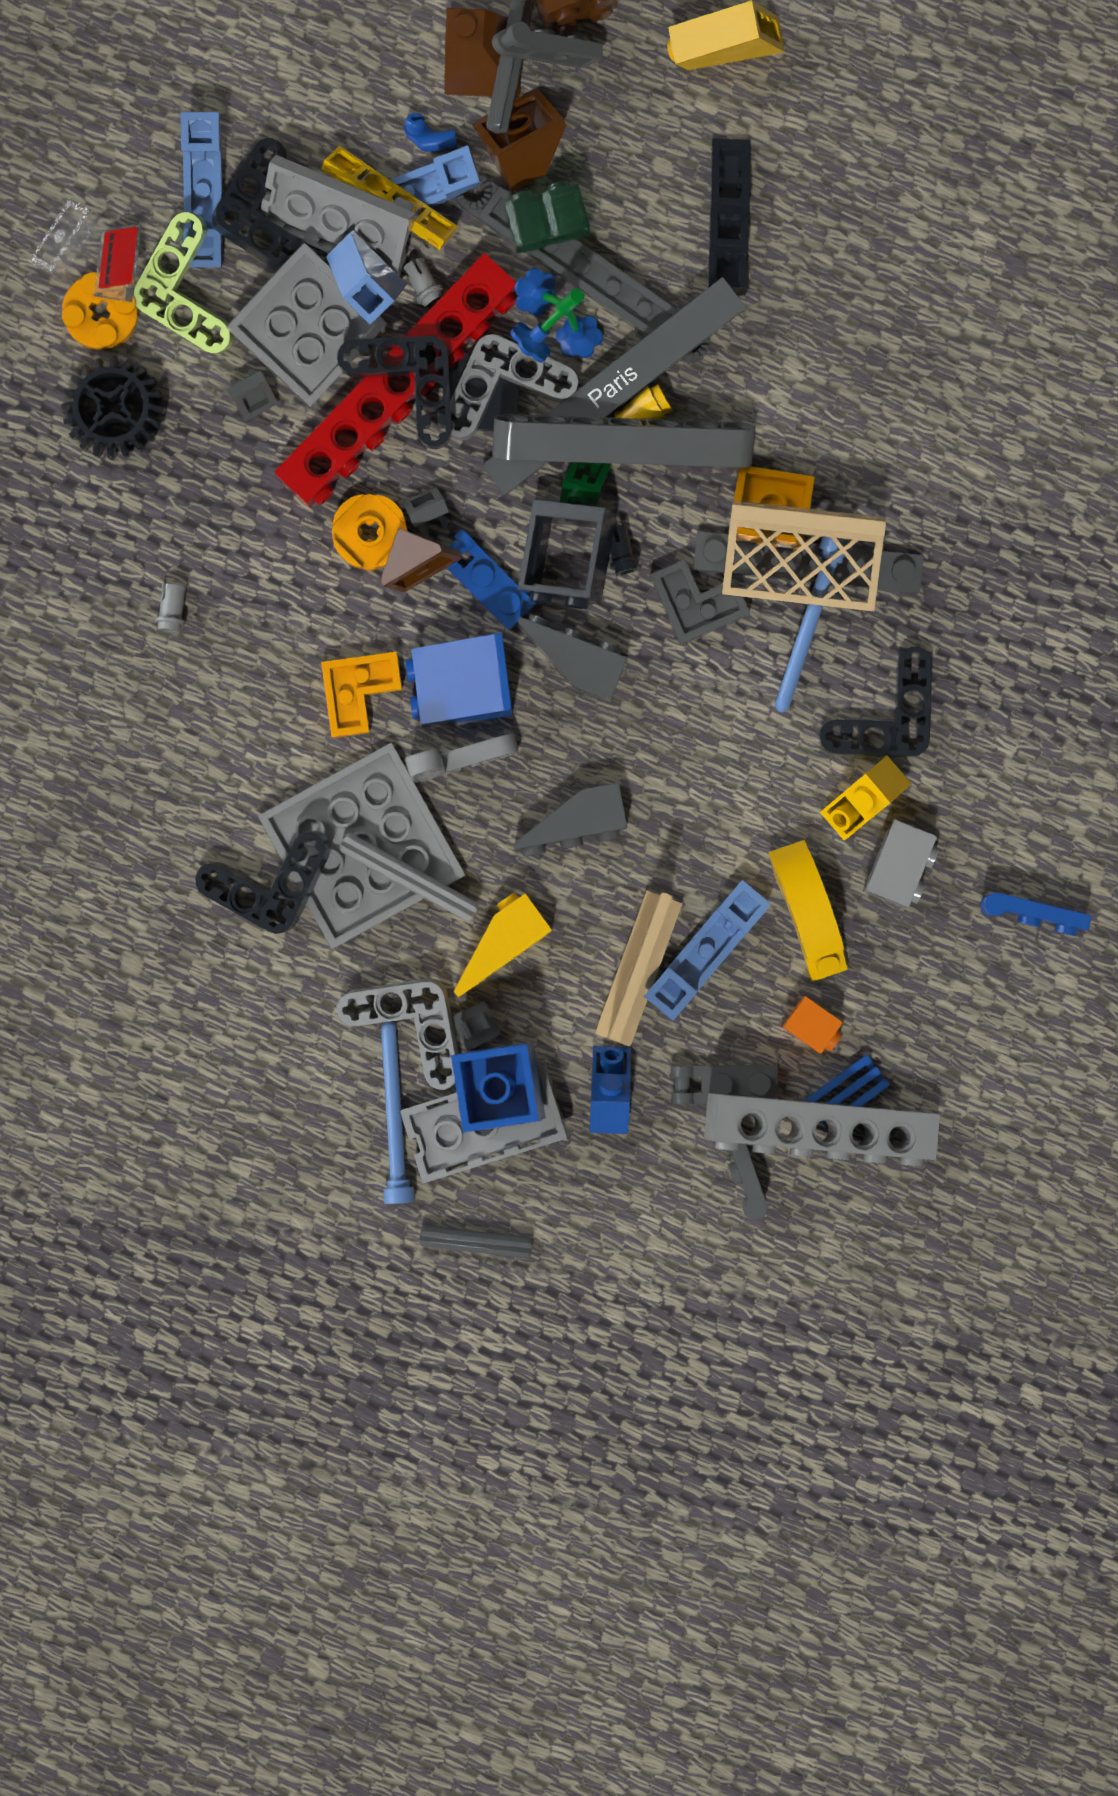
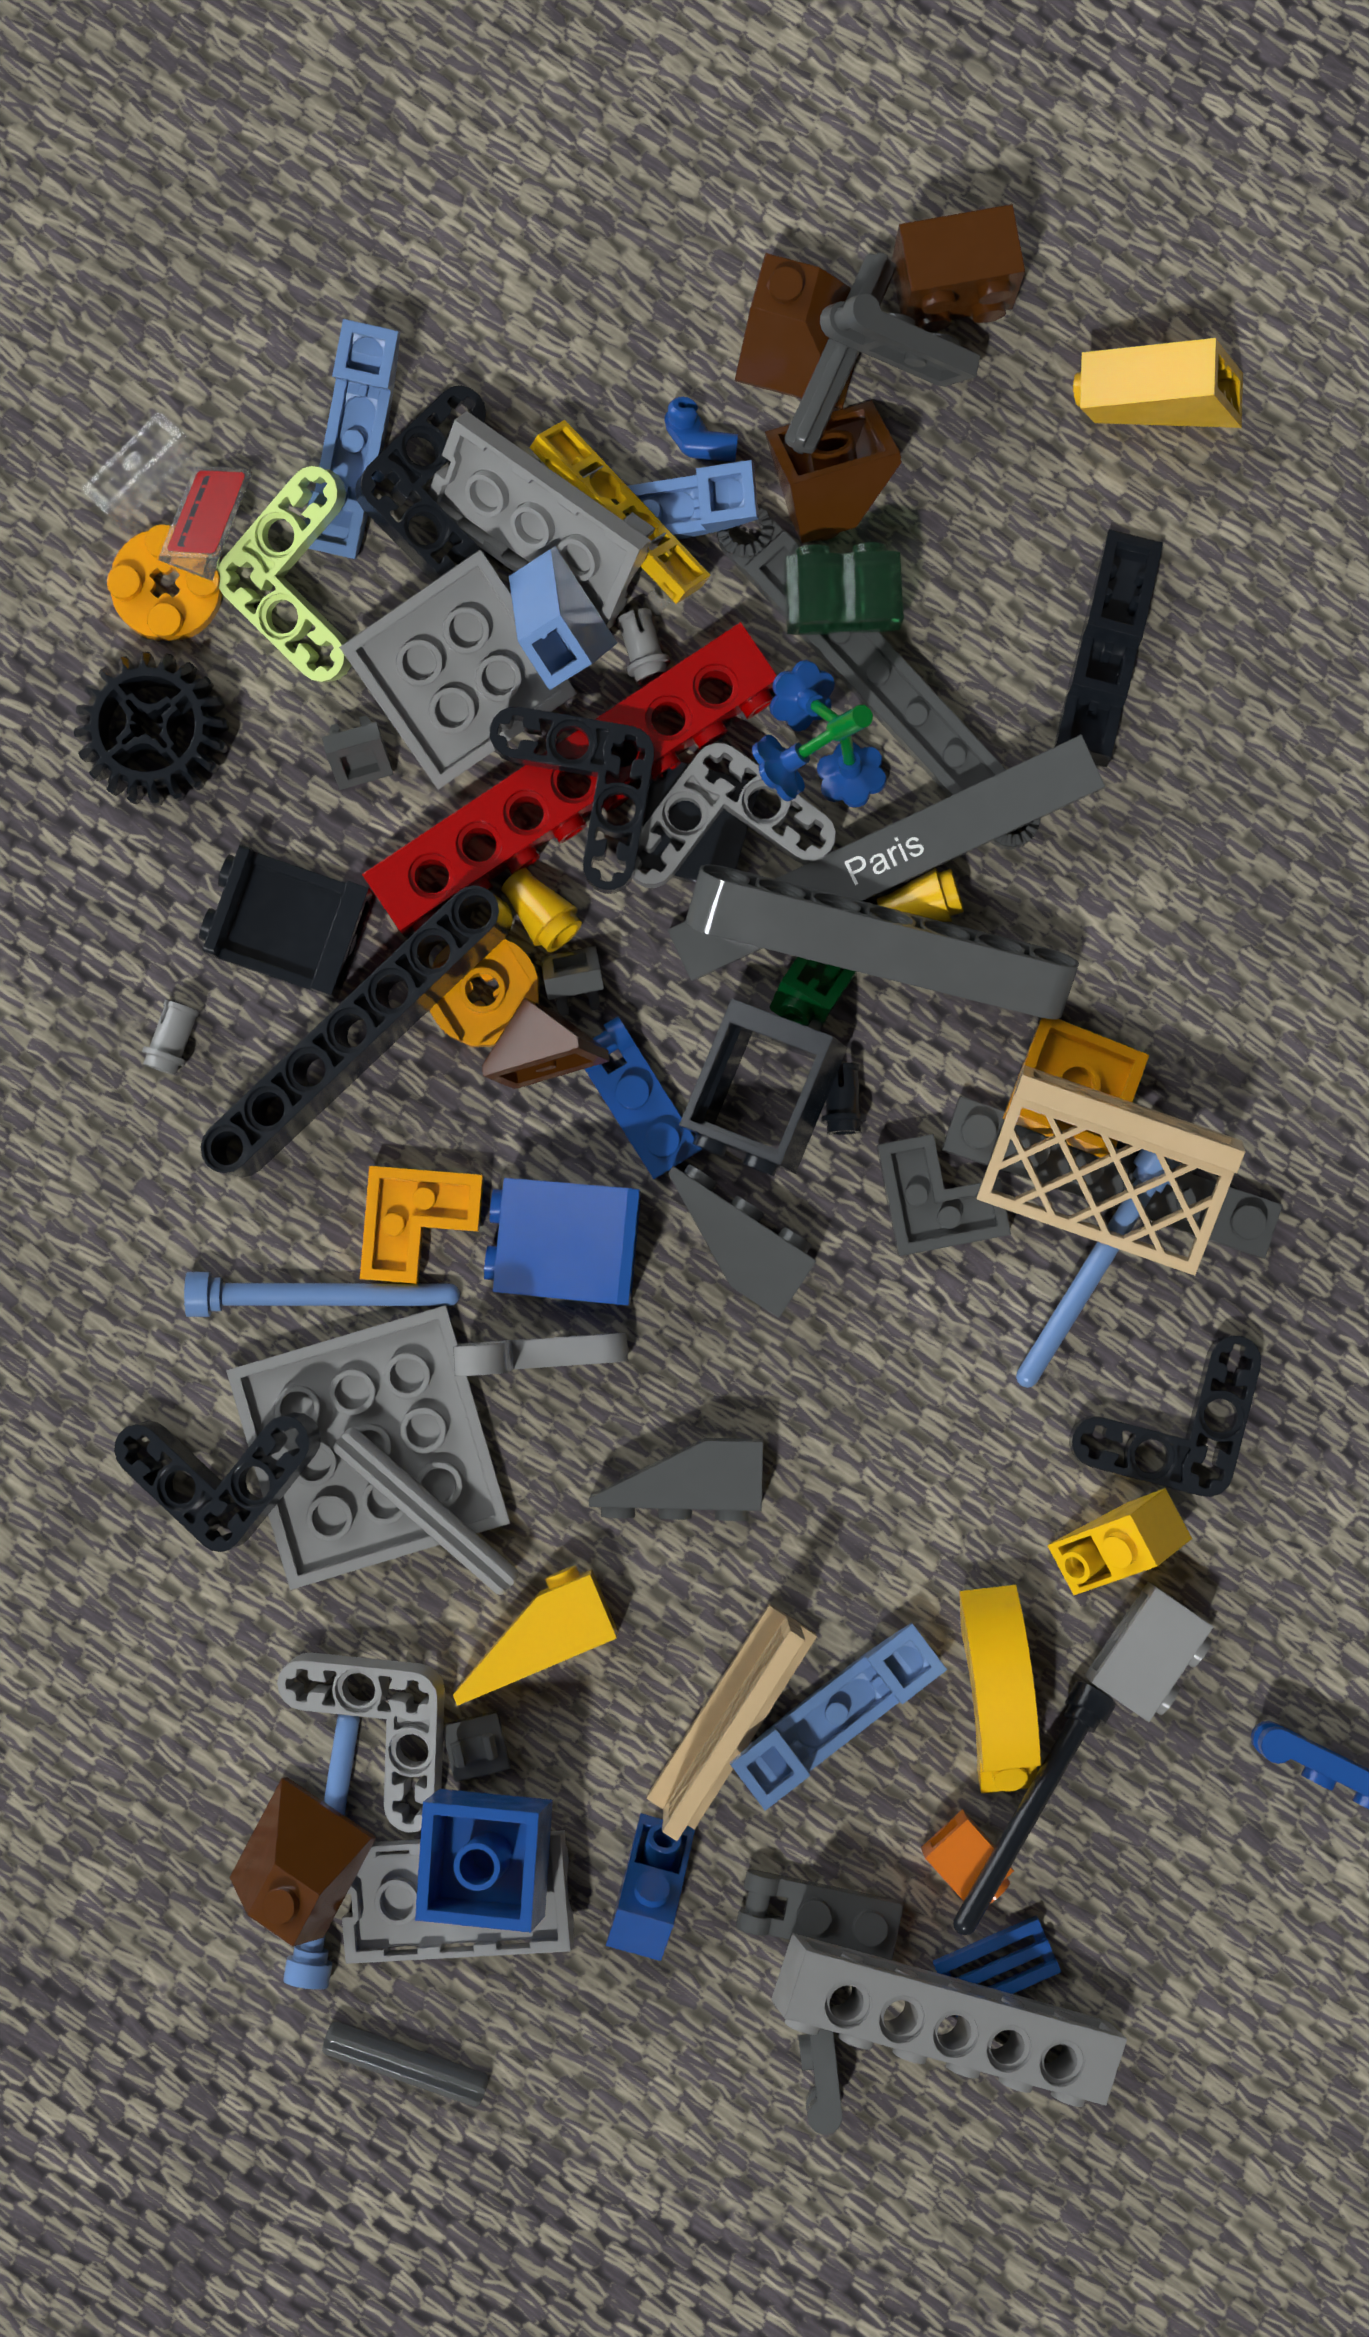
camera: 20 degrees right, 0 degrees up
(230, 515) = (286, 922): none -> black panel
(235, 770) = (210, 1294): none -> medium blue piece
(311, 567) = (330, 1040): none -> black beam
(378, 1123) = (299, 1864): none -> reddish brown slope
(398, 472) = (543, 912): none -> yellow cone
(868, 911) = (1085, 1711): none -> black piece

